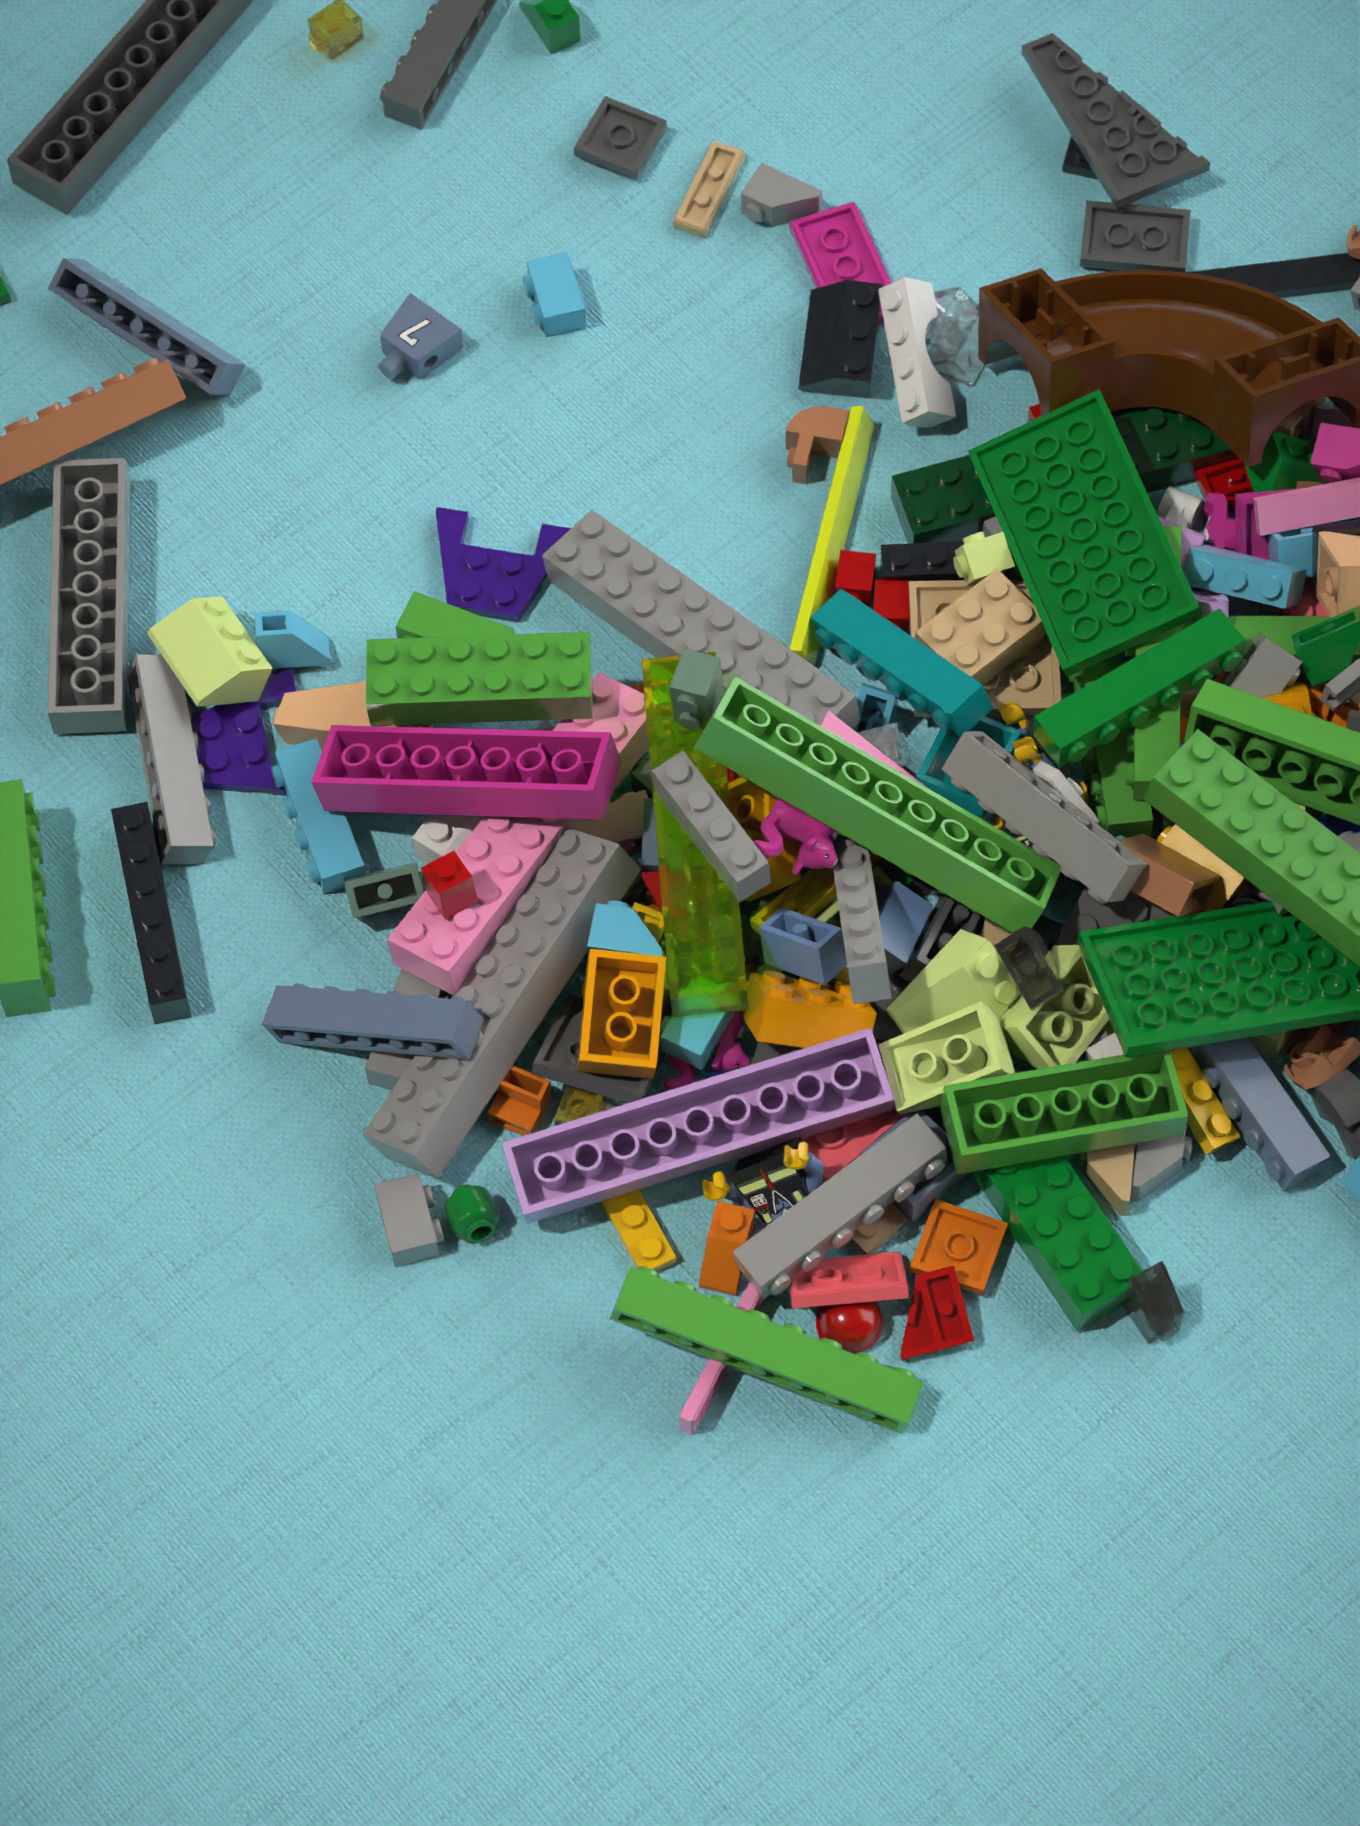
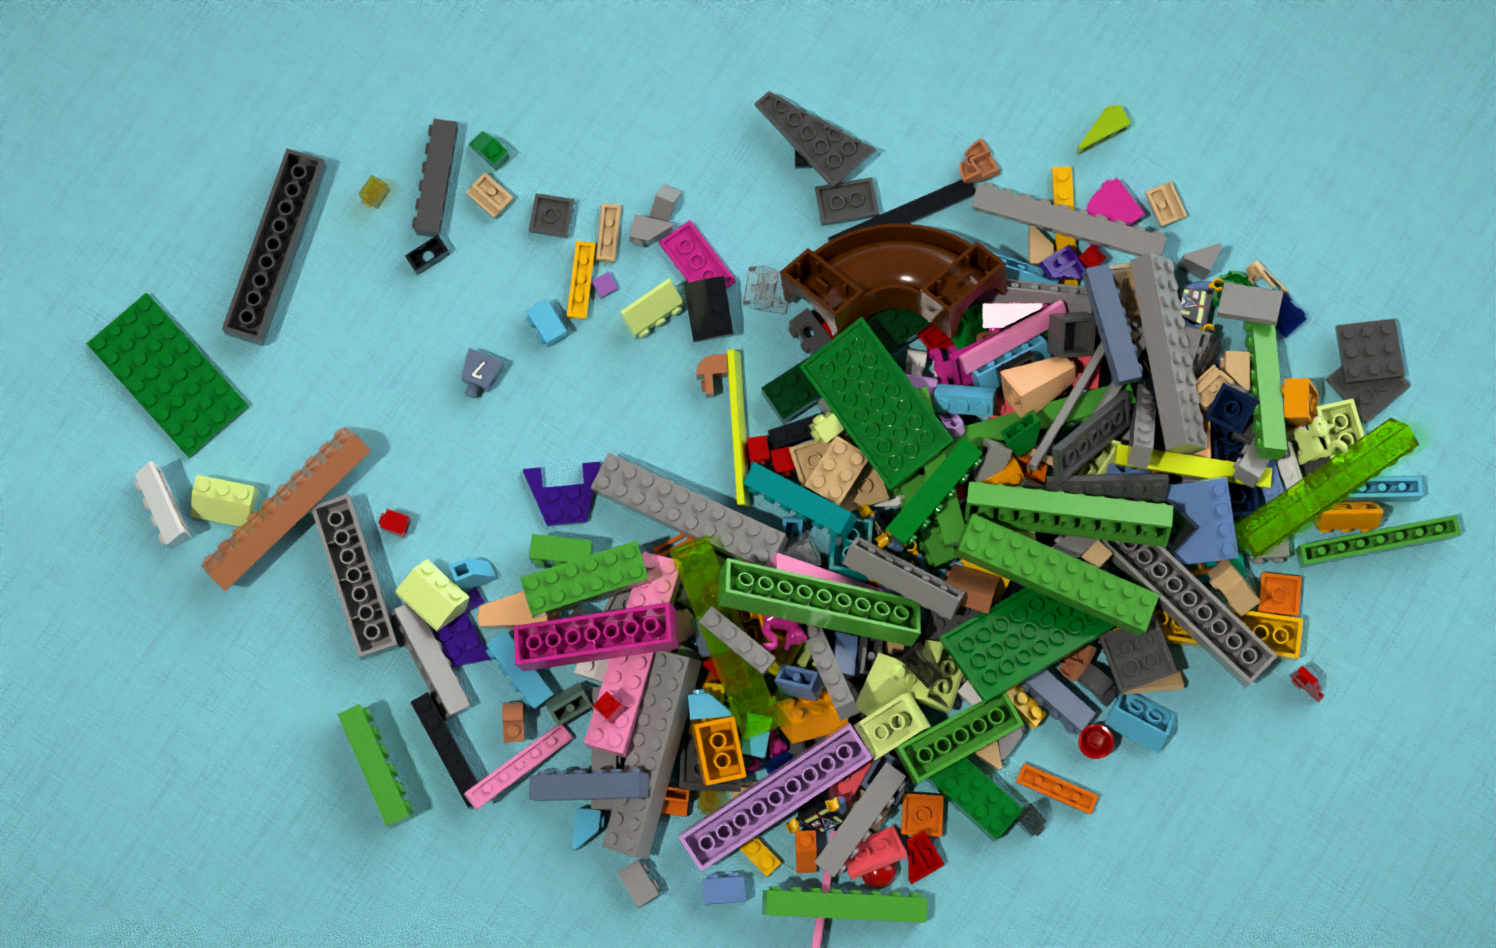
camera: 20 degrees left, 15 degrees up
(146, 326) = (331, 406): sand blue brick -> none
(188, 533) = (394, 523): none -> red brick
(262, 964) = (518, 766): none -> bright pink tile
(279, 892) = (513, 722): none -> nougat brick
(347, 1100) = (586, 826): none -> medium azure slope
(405, 133) = (433, 245): none -> black piece
(472, 1213) = (670, 870): green head -> none
(526, 83) = (489, 195): none -> tan plate
(558, 1273) = (724, 890): none -> medium blue brick
(637, 246) = (581, 280): none -> yellow plate
(675, 265) = (604, 285): none -> medium lavender tile
(696, 689) = (707, 568): sand green brick -> none
(742, 312) = (652, 309): none -> yellowish green slope
(821, 163) = (665, 203): none -> light grey slope
(921, 391) = (759, 328): white arch -> none
(999, 402) = (807, 321): none -> dark grey brick
(1066, 787) = (910, 556): white plate -> none
(1221, 1271) = (1056, 789): none -> orange plate
(1316, 1204) = (1095, 741): none -> red helmet

